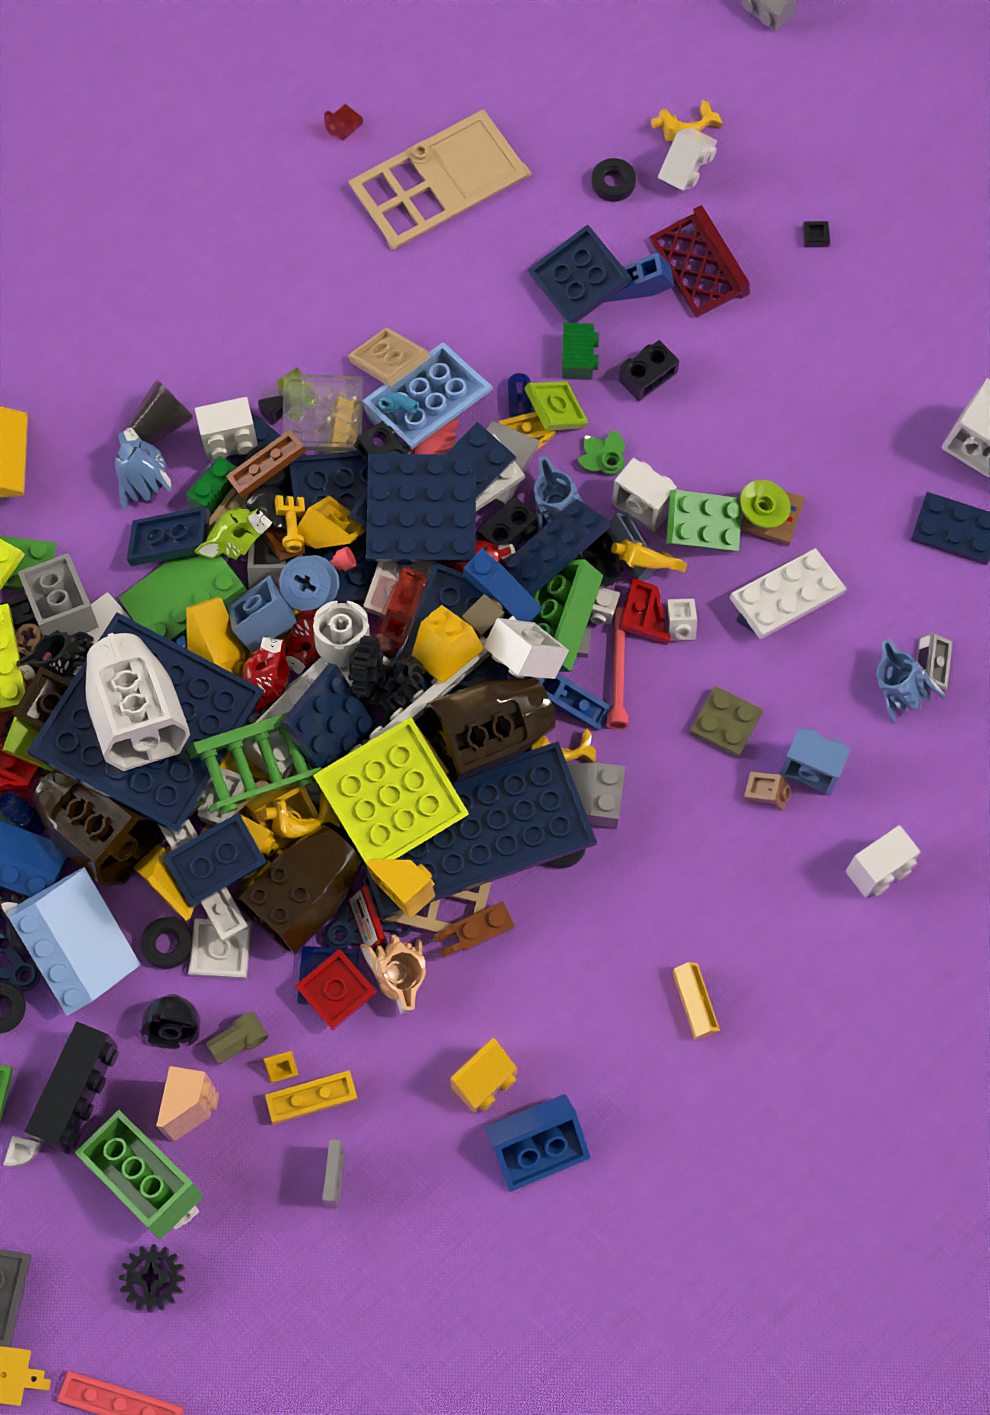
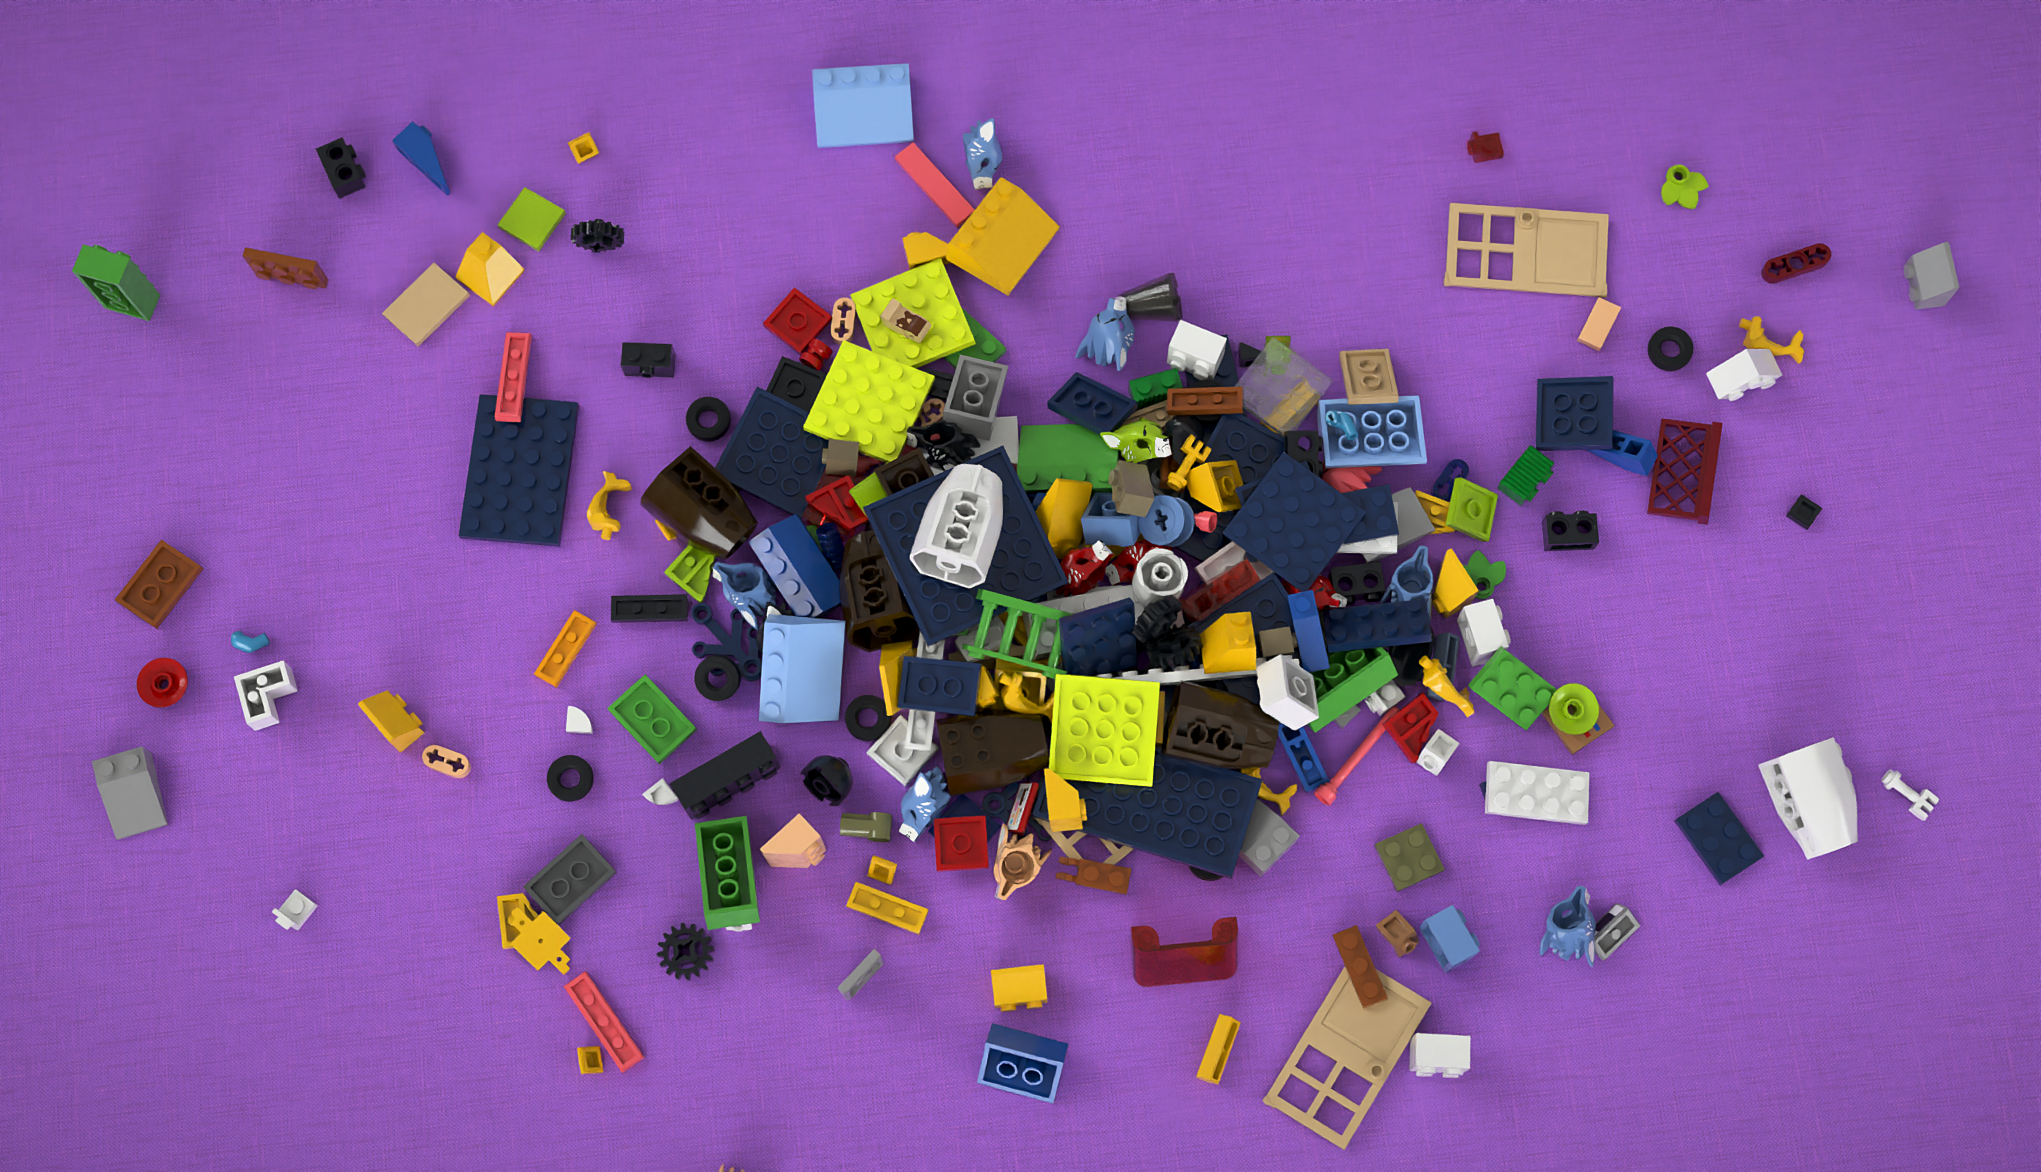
camera: 40 degrees right, 5 degrees up
(259, 573) = (1131, 488): none -> dark tan brick
(276, 973) = (923, 803): none -> medium blue piece
(526, 54) = (1684, 190): none -> lime plate
(542, 197) = (1598, 324): none -> light nougat tile
(590, 472) = (1453, 586): none -> yellow slope
(592, 963) = (1184, 962): none -> clear red windscreen
(658, 44) = (1801, 254): none -> dark red beam
(759, 840) = (1359, 967): none -> dark orange plate
(803, 891) = (1356, 1038): none -> tan door

